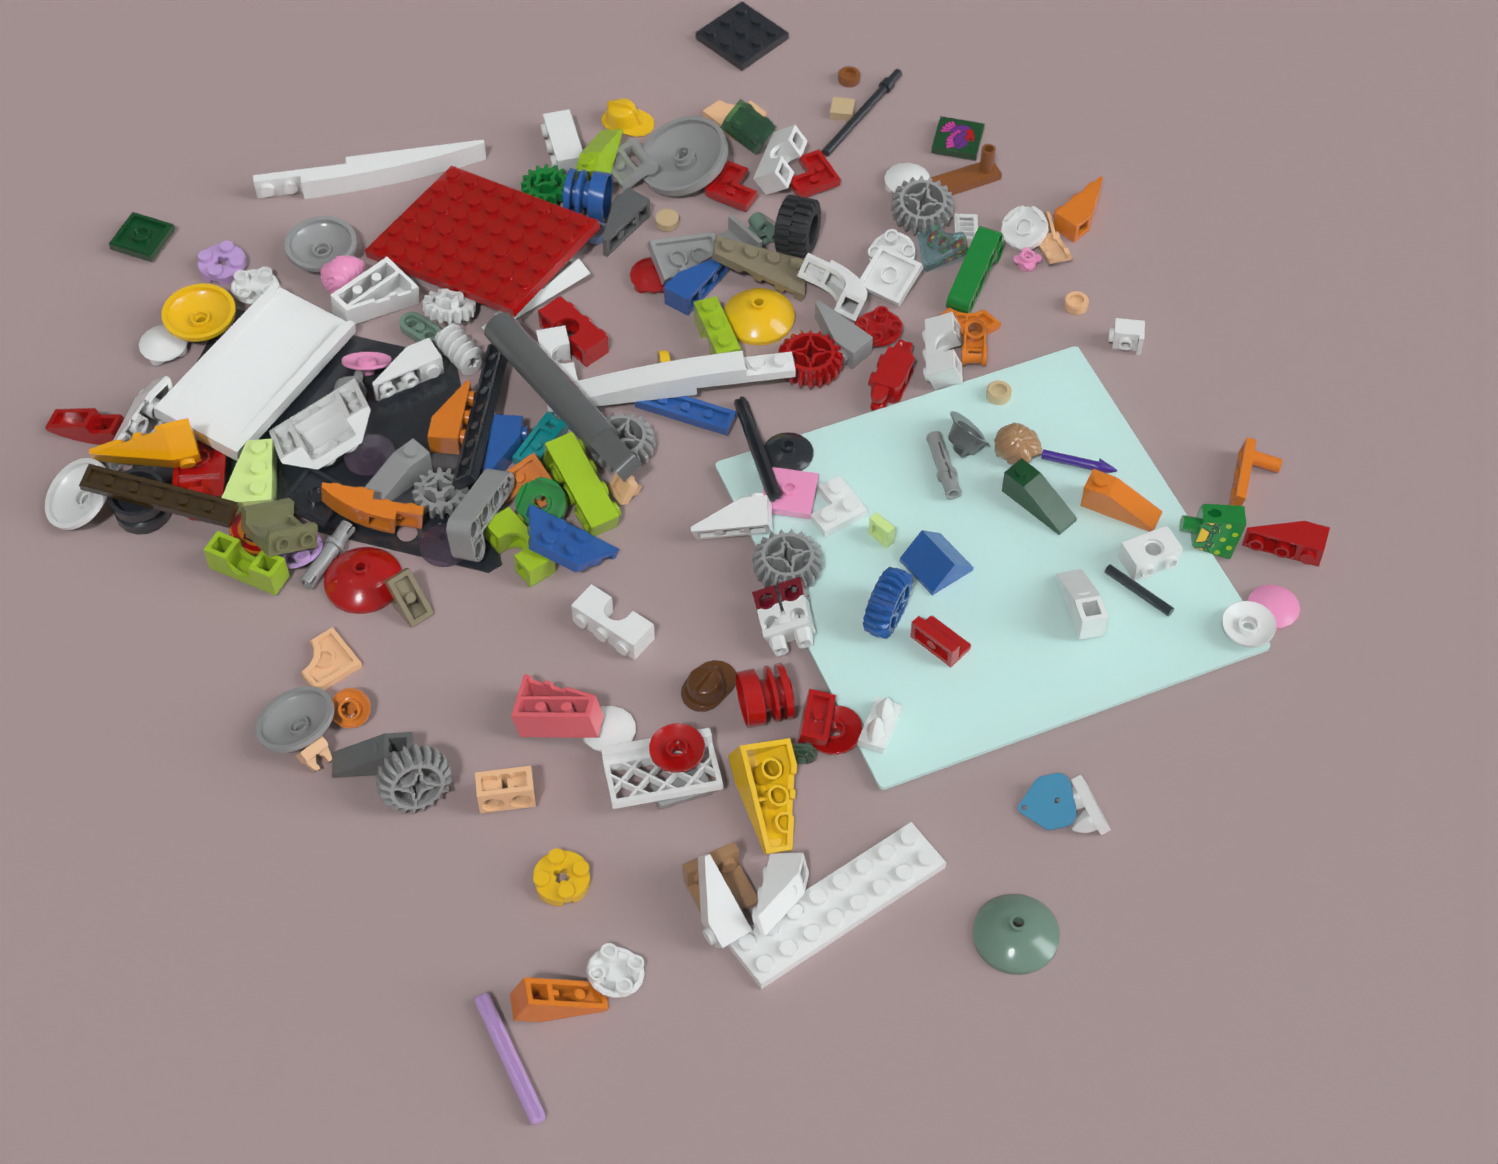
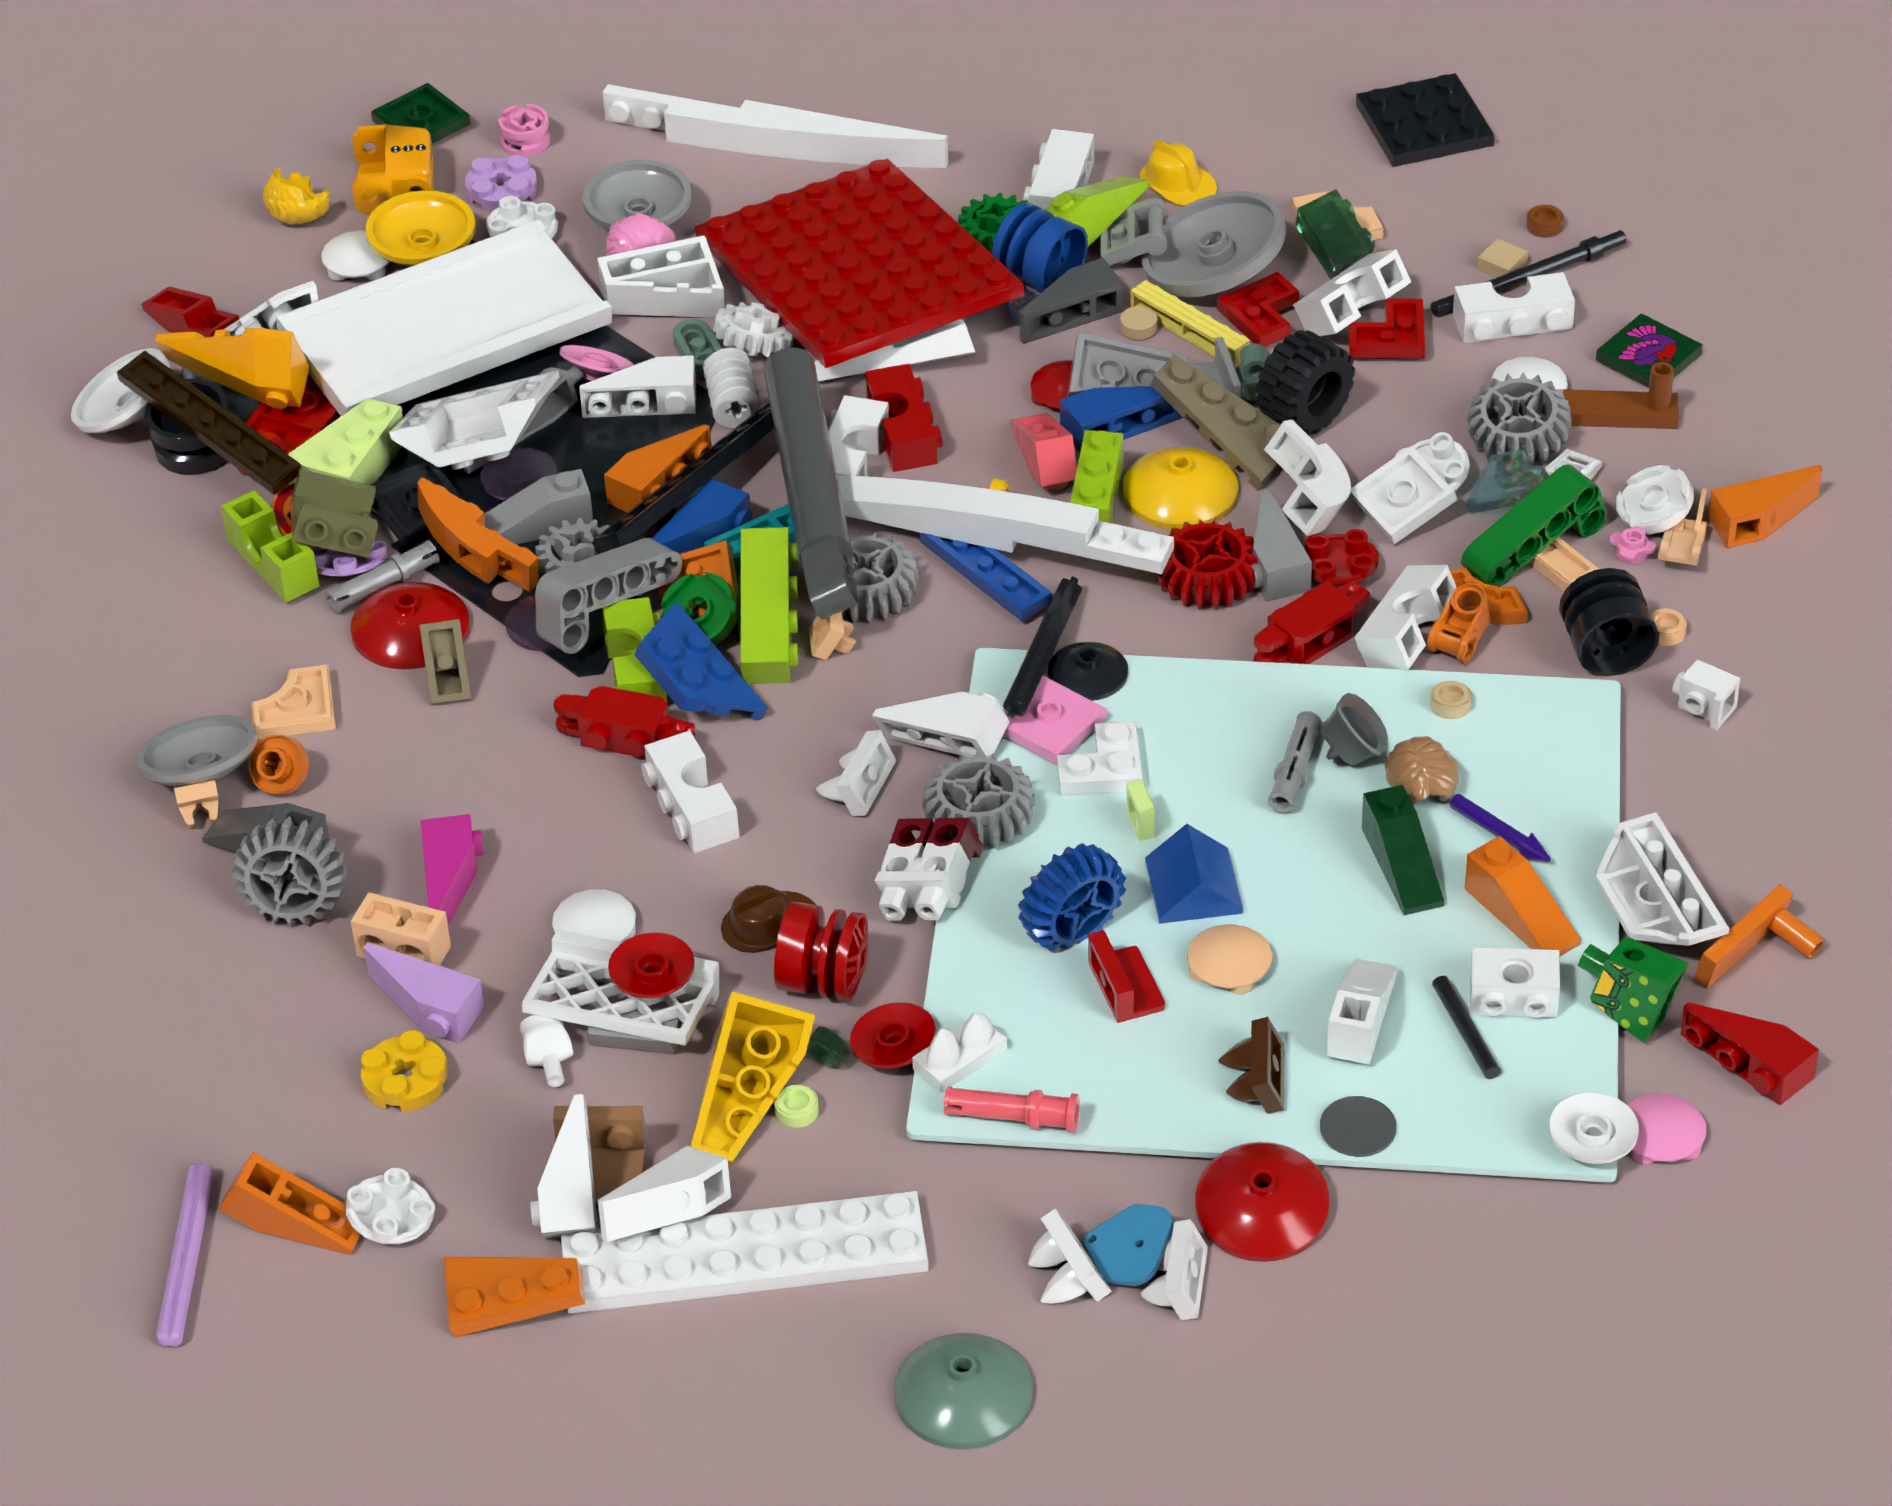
camera: 30 degrees right, 10 degrees down
(97, 322) = (293, 199): none -> yellow hair
(149, 277) = (396, 165): none -> light orange piece
(214, 221) = (524, 129): none -> bright pink wheel
(496, 727) = (449, 860): none -> dark pink slope
(541, 593) = (617, 720): none -> red hinge
(544, 820) = (429, 994): none -> lavender slope
(555, 711) = (528, 864): coral wedge -> none
(637, 823) = (546, 1045): none -> white piece
(671, 319) = (1046, 449): none -> coral slope
(696, 209) = (1188, 321): none -> light yellow piece
(706, 578) = (862, 775): none -> white tile
(722, 992) = (508, 1290): none -> orange wing
(805, 797) = (796, 1106): none -> yellowish green tile
(816, 718) = (874, 1007): red panel -> none
(858, 147) = (1488, 316): none -> white arch
(946, 743) = (1032, 1109): none -> coral pin
(987, 601) = (1229, 957): none -> light nougat dish
(1001, 287) = (1561, 564): none -> light nougat tile
(1034, 833) = (1073, 1277): none -> white tile
(1044, 654) = (1265, 1058): none -> reddish brown tile
(1055, 313) = (1609, 622): none -> black wheel
(1094, 756) = (1256, 1220): none -> red dish
(1121, 675) = (1358, 1126): none -> dark grey piece
(1187, 466) = (1655, 887): none -> white wedge

